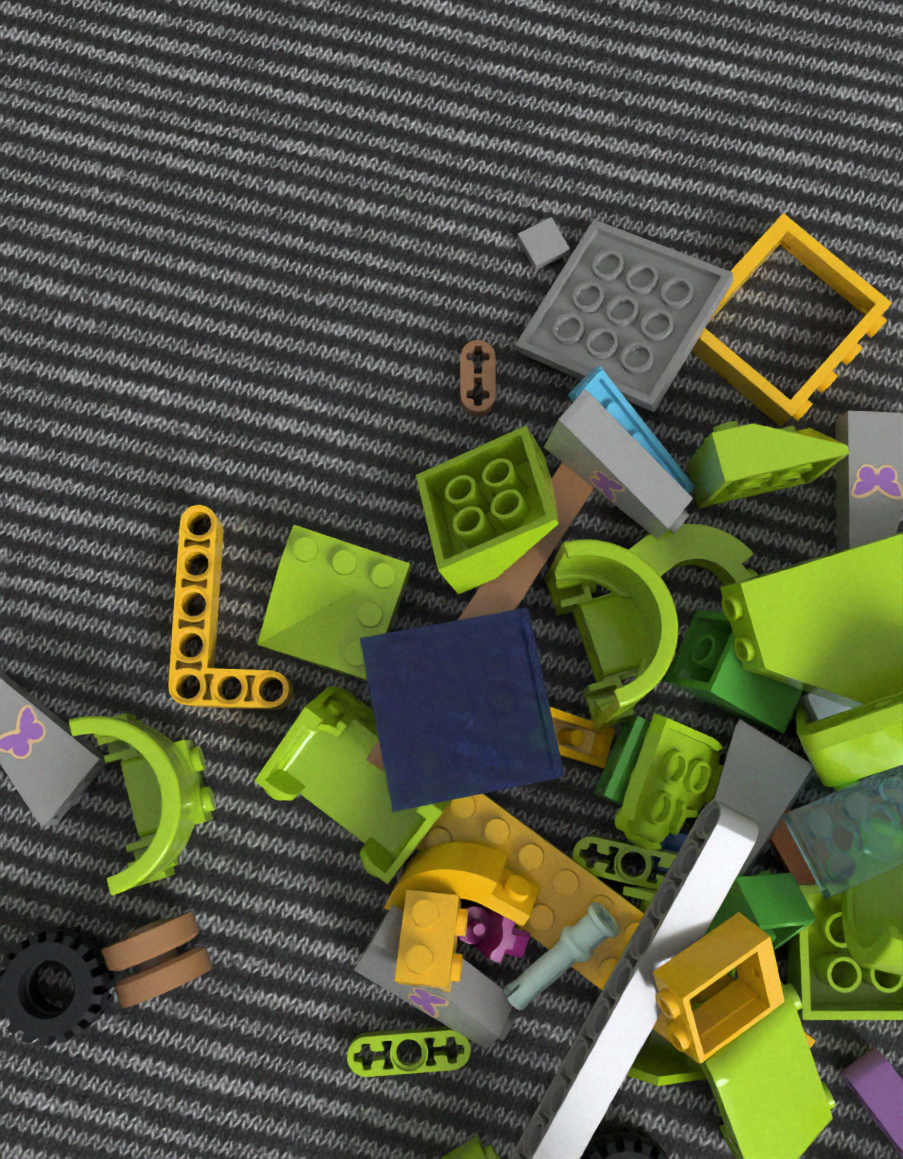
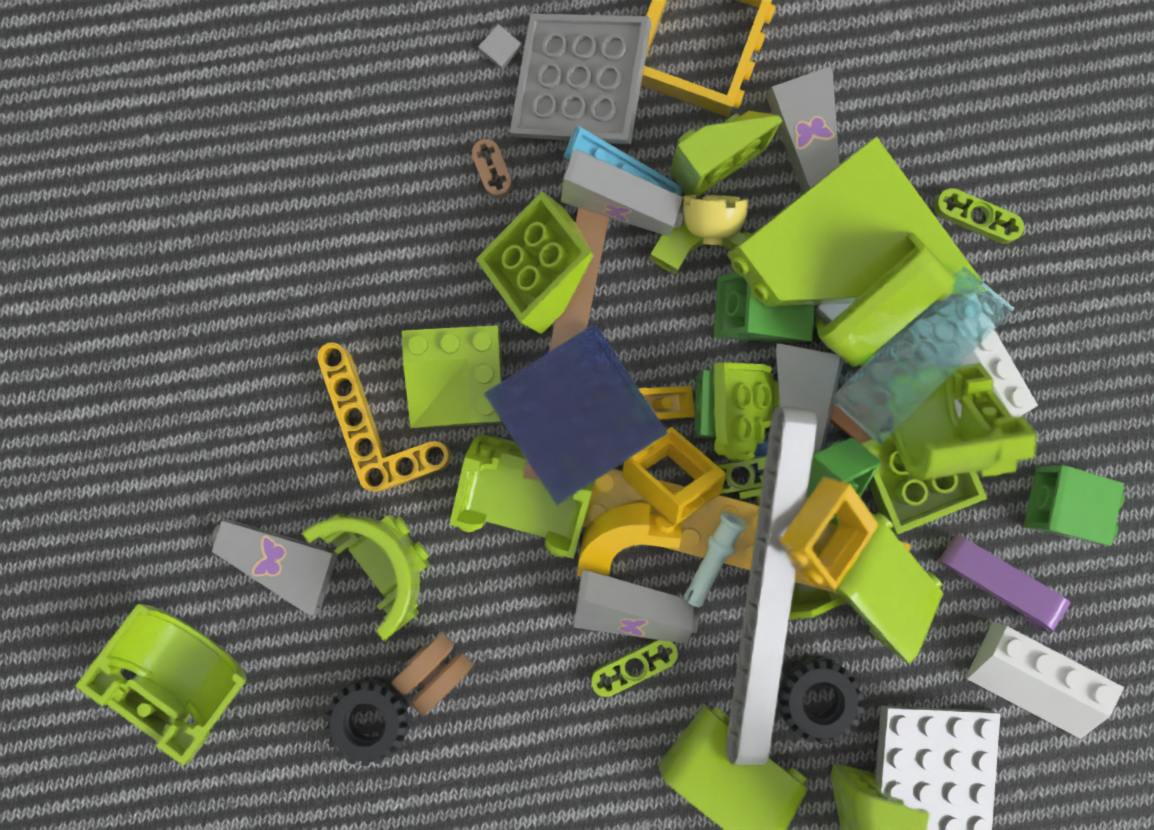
camera: 20 degrees left, 5 degrees up
(430, 940) = (618, 582): yellow bracket -> none
(493, 933) = (658, 562): magenta hips -> none
(539, 874) = (677, 507): none -> yellow window
(623, 631) = (669, 313): lime piece -> none
(721, 536) = (714, 216): none -> light yellow cylinder

